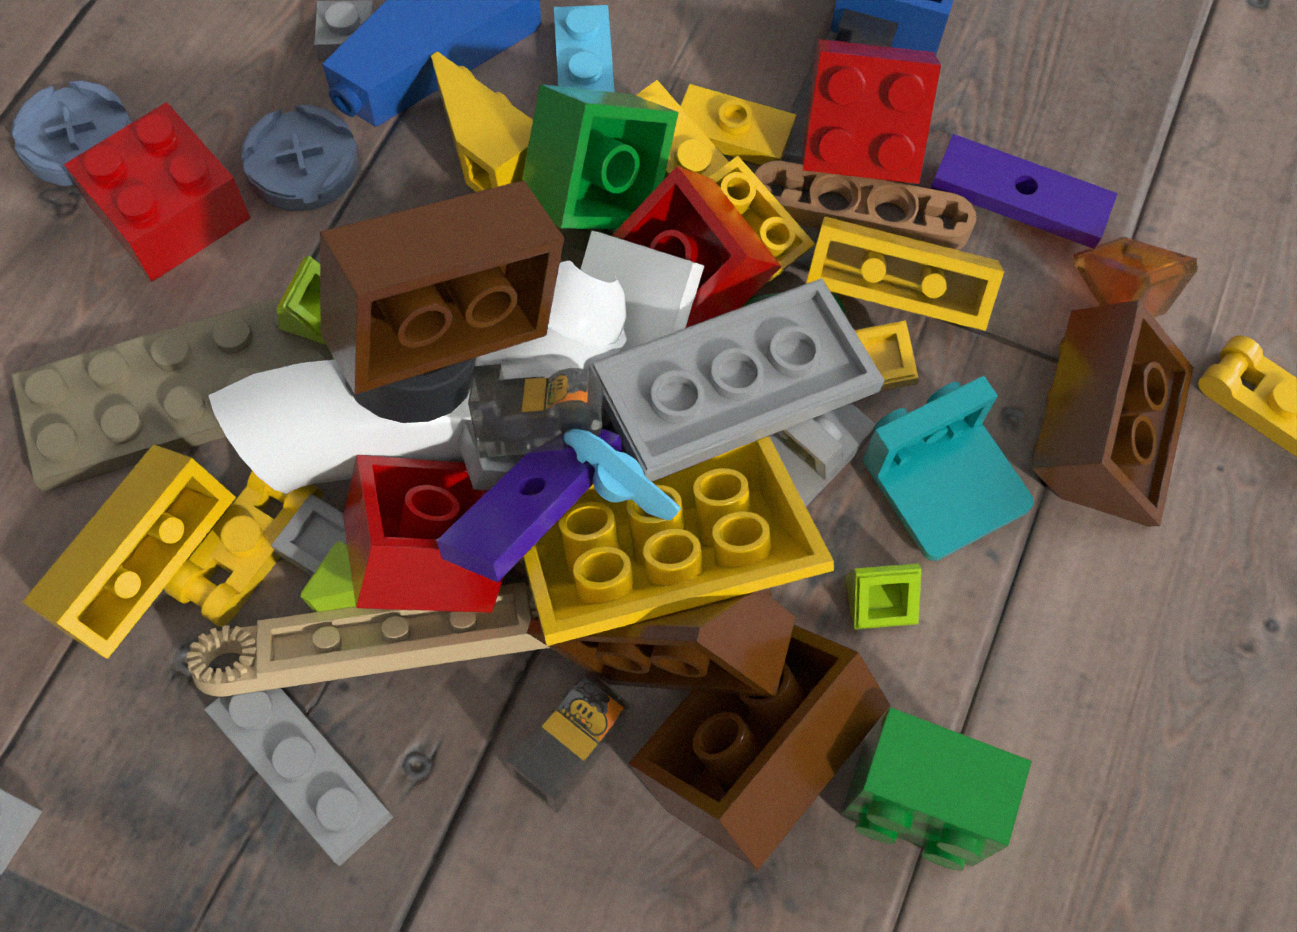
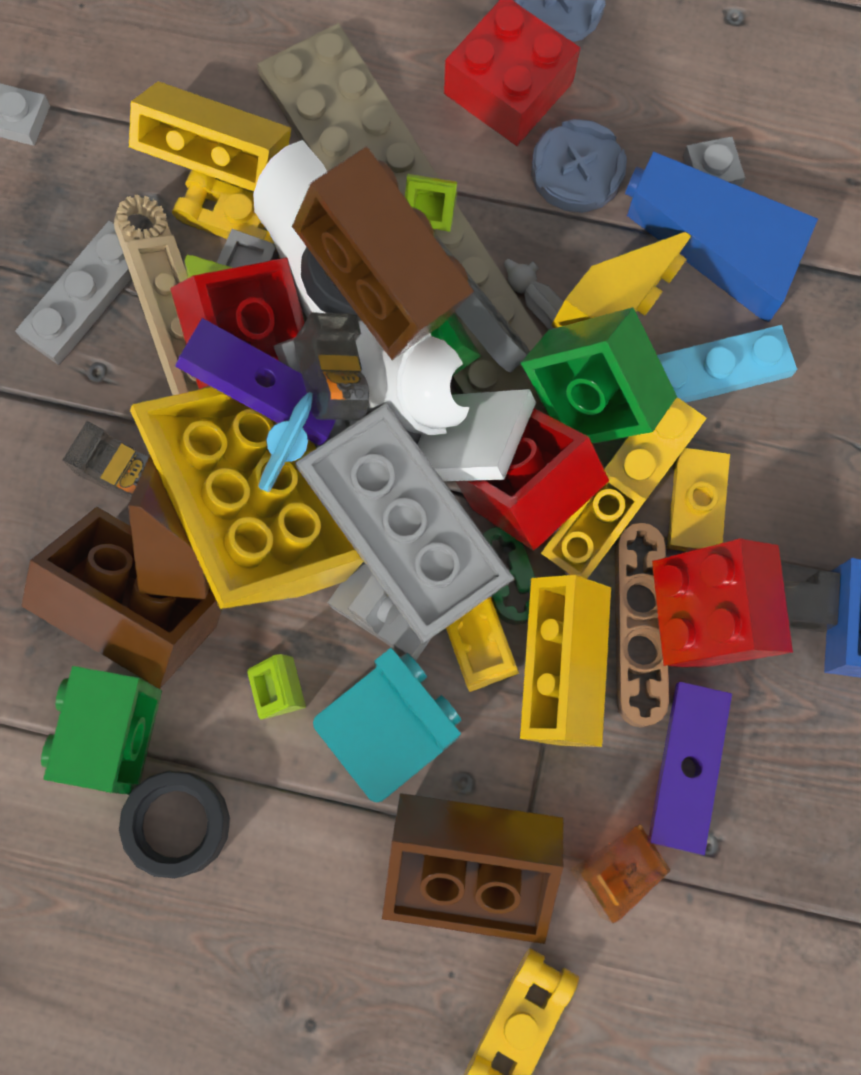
camera: 80 degrees right, 10 degrees up
(1081, 704) = (133, 816): none -> black tyre

